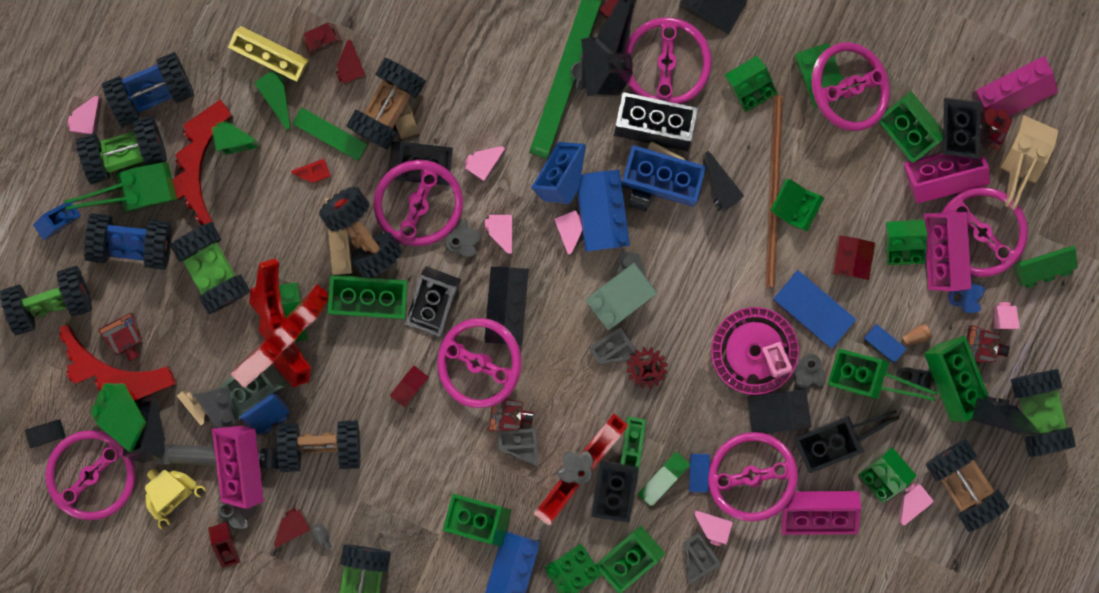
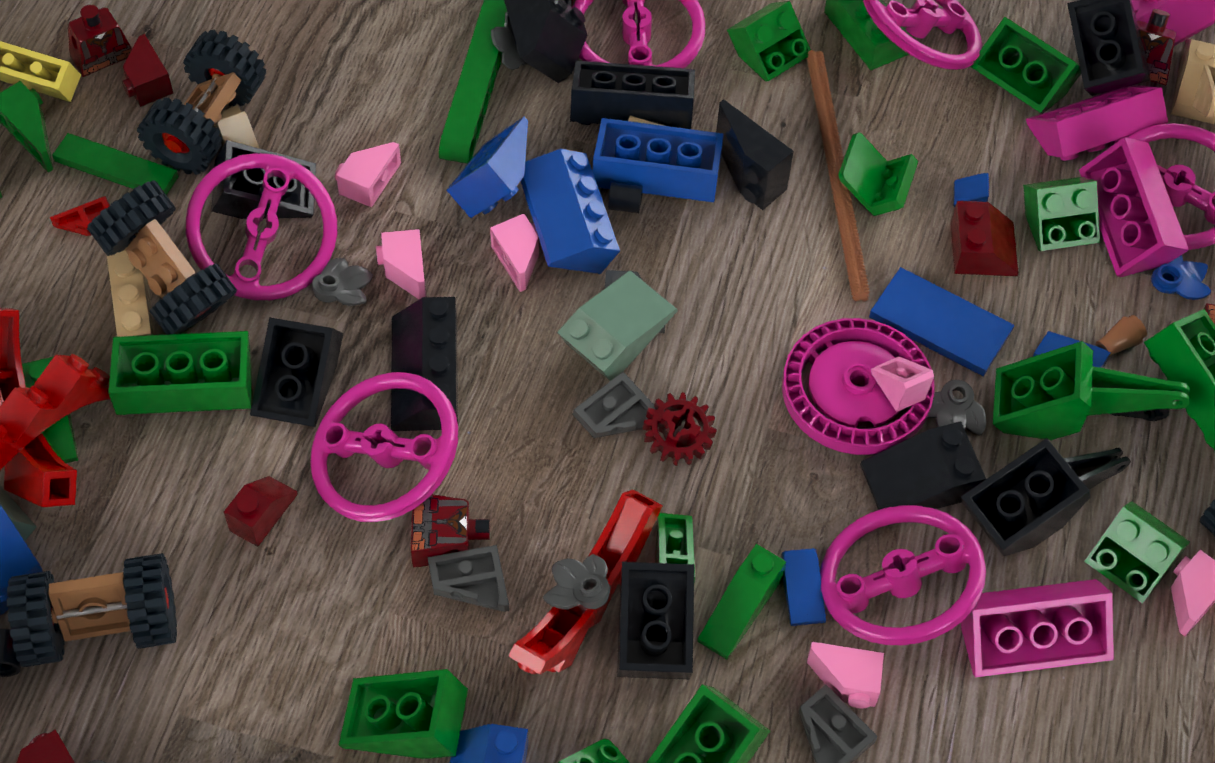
camera: 10 degrees left, 30 degrees down
(854, 218) = (972, 188): none -> blue slope

